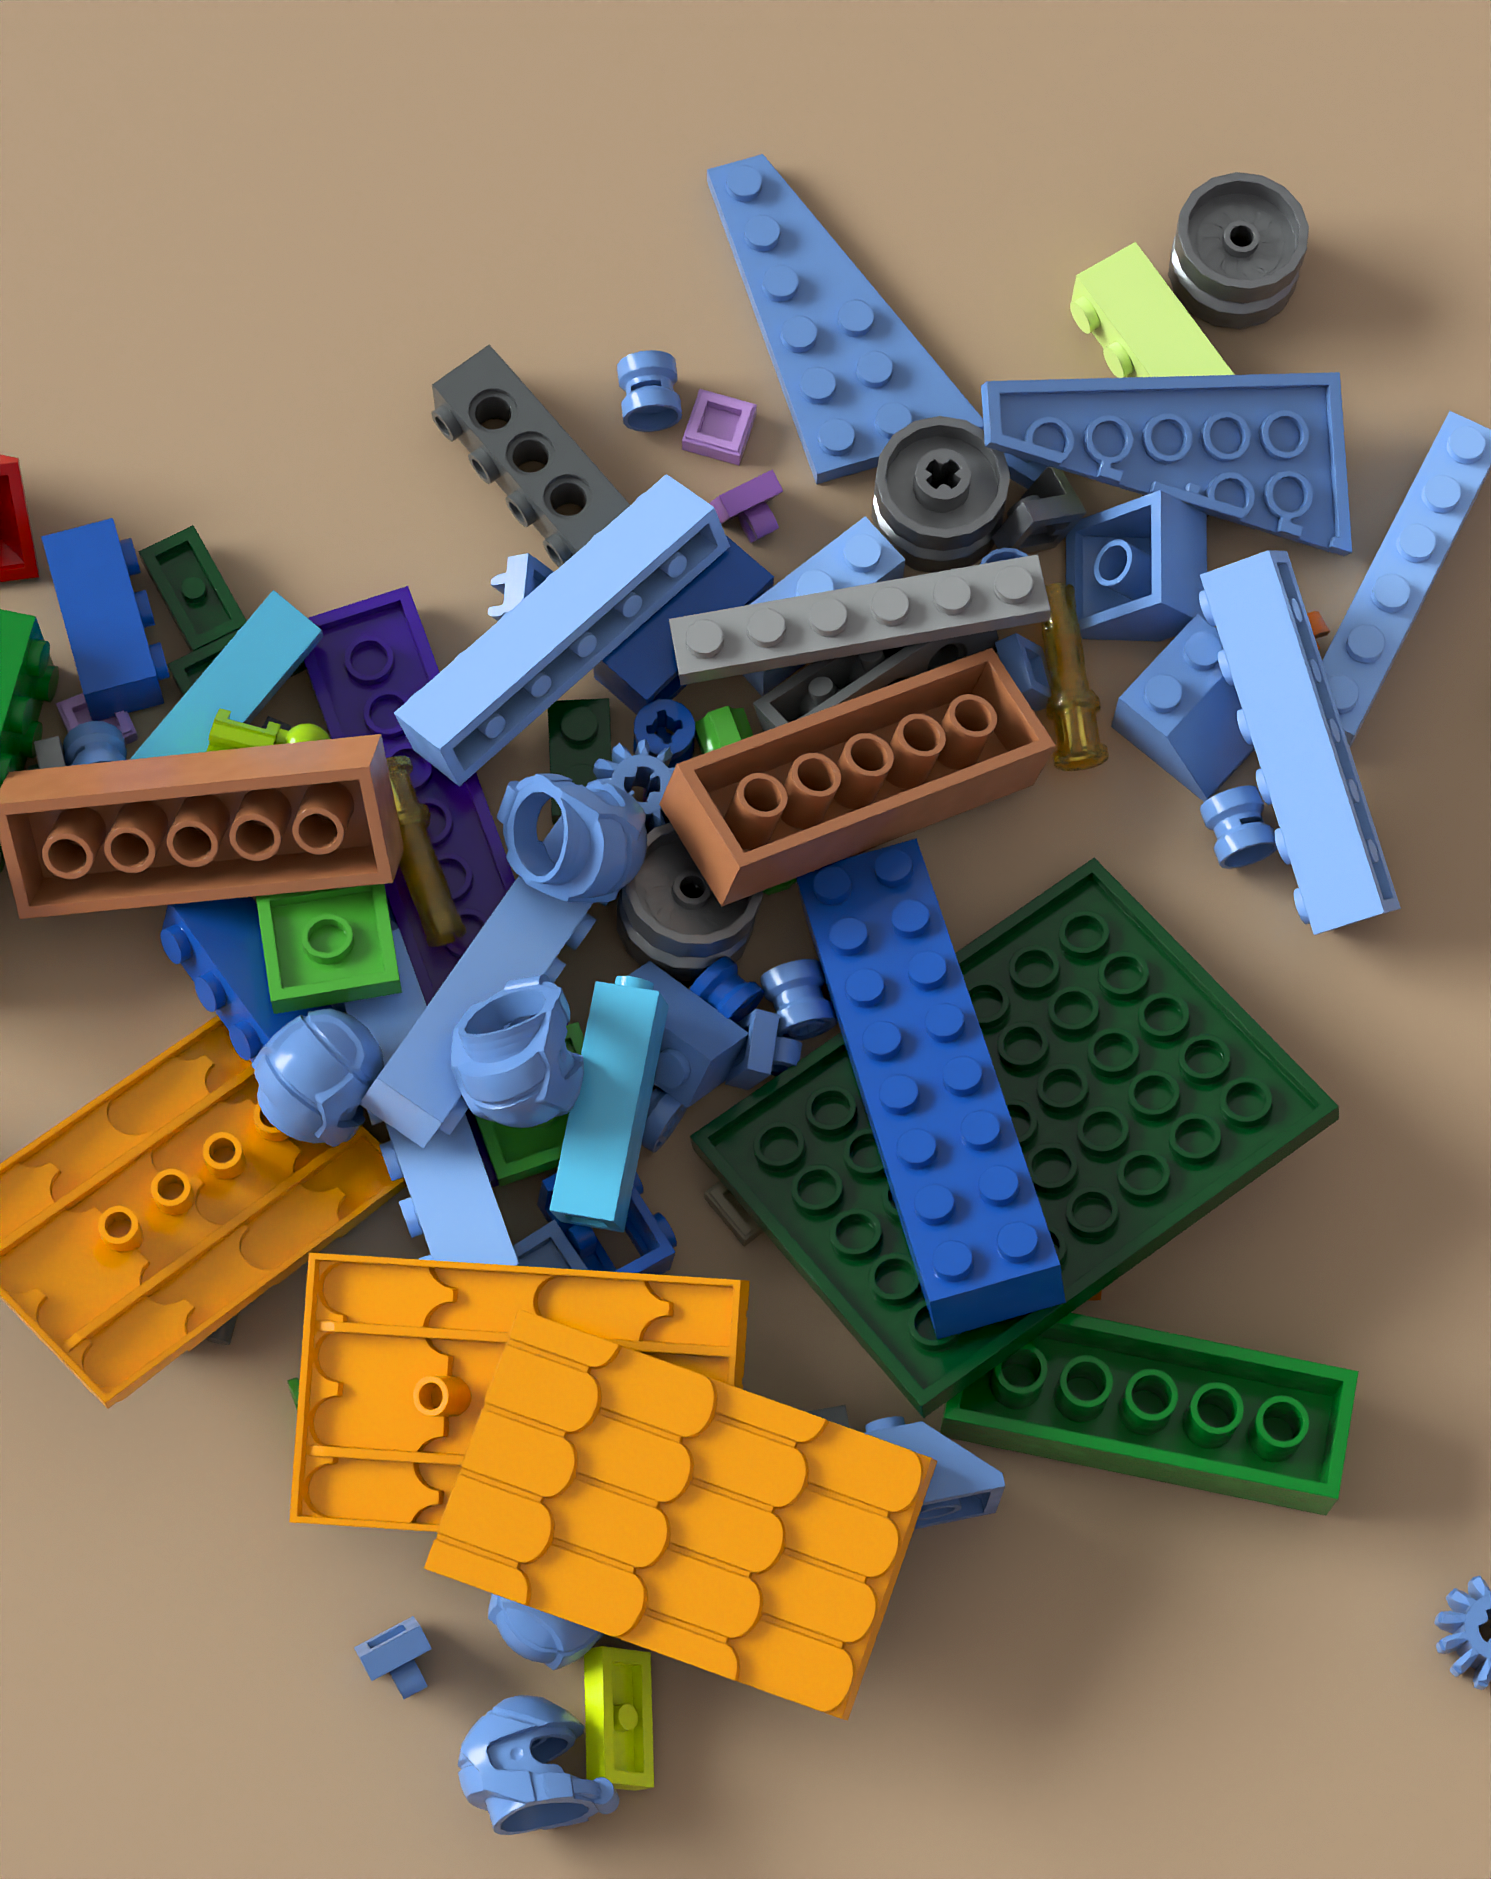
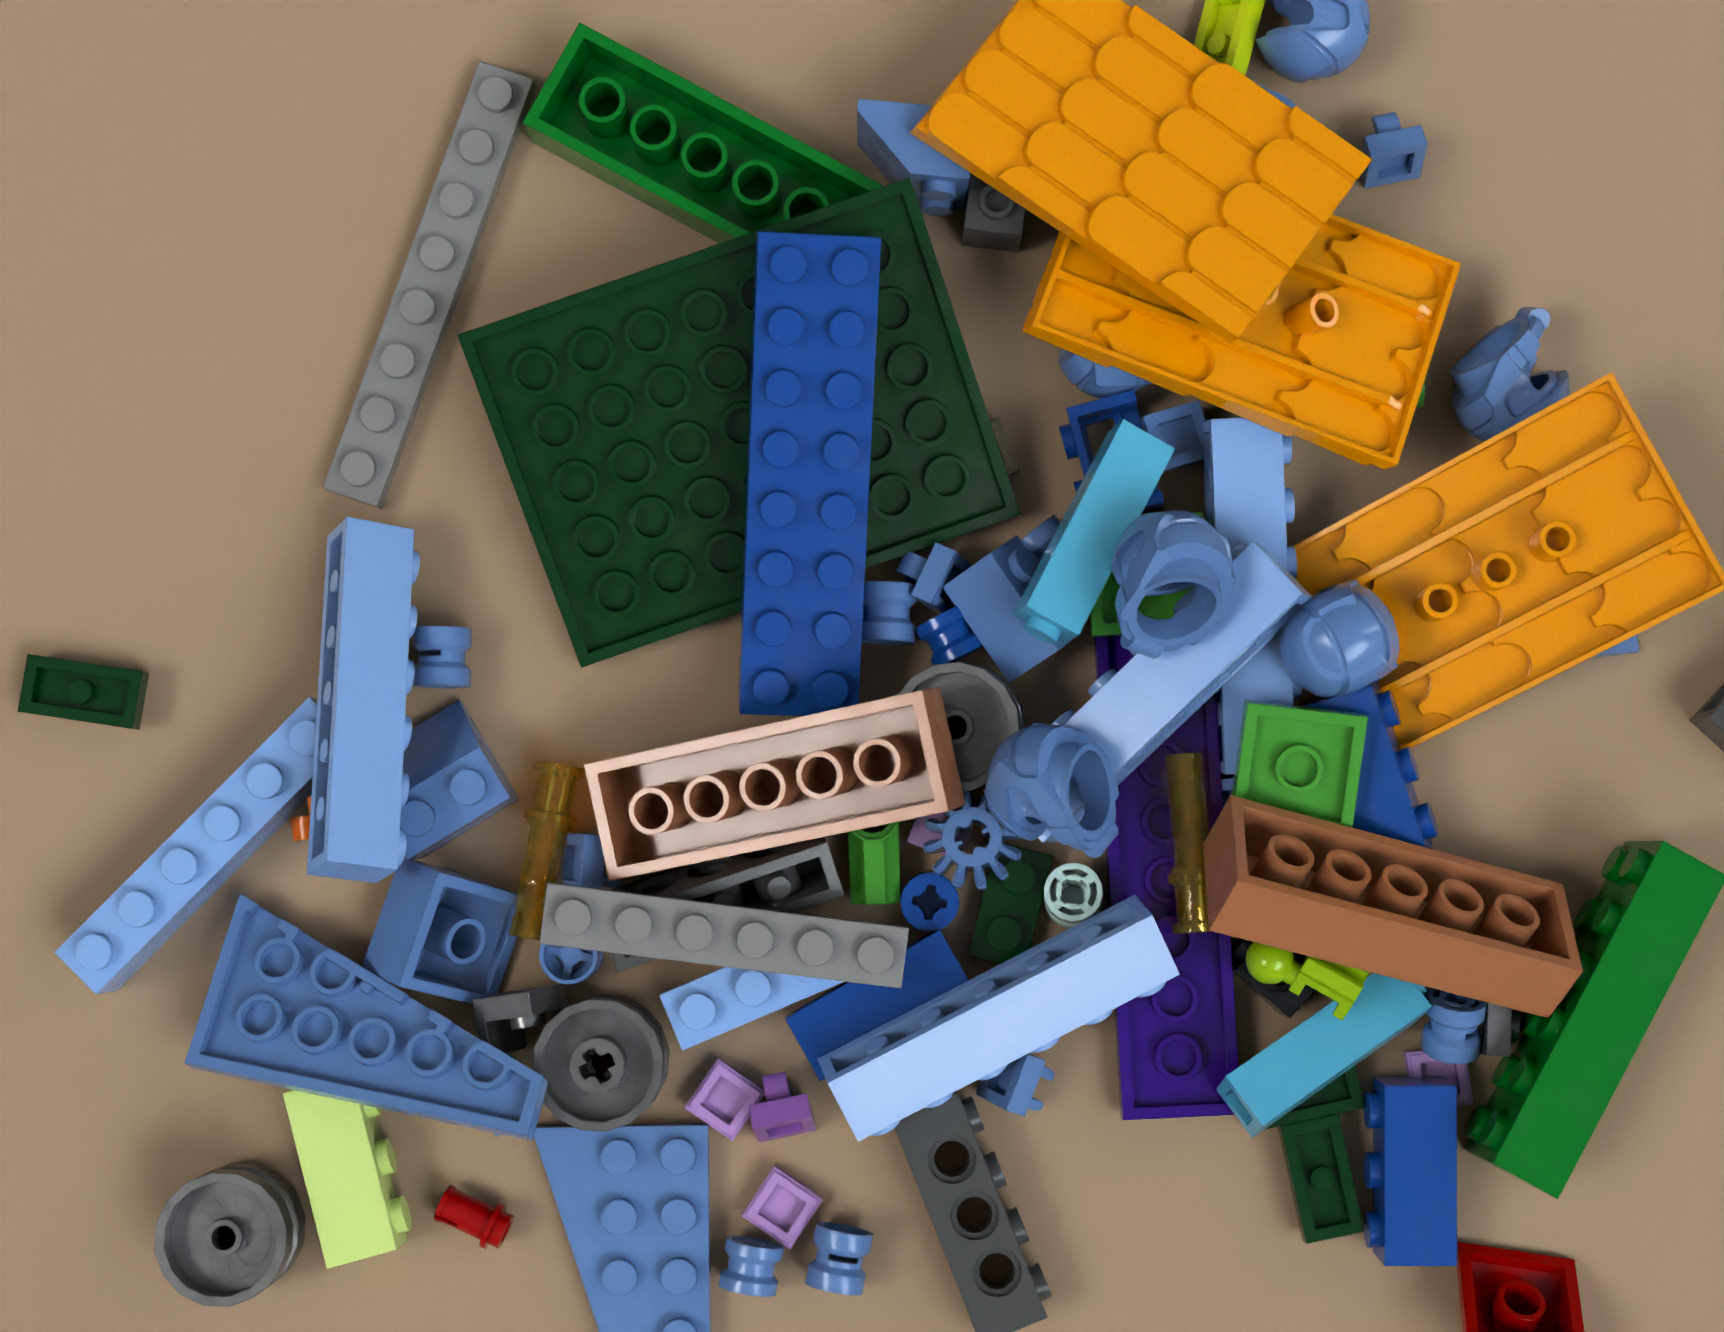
camera: 160 degrees left, 15 degrees up
(210, 1417) = (1495, 378): none -> medium blue helmet
(519, 753) = (1076, 902): none -> light aqua wheel
(732, 361) = (751, 1266): none -> medium blue wheel
(808, 505) = (725, 1099): none -> lavender tile
(1013, 334) = (474, 1217): none -> red pin
(1396, 1211) = (430, 285): none -> light grey plate

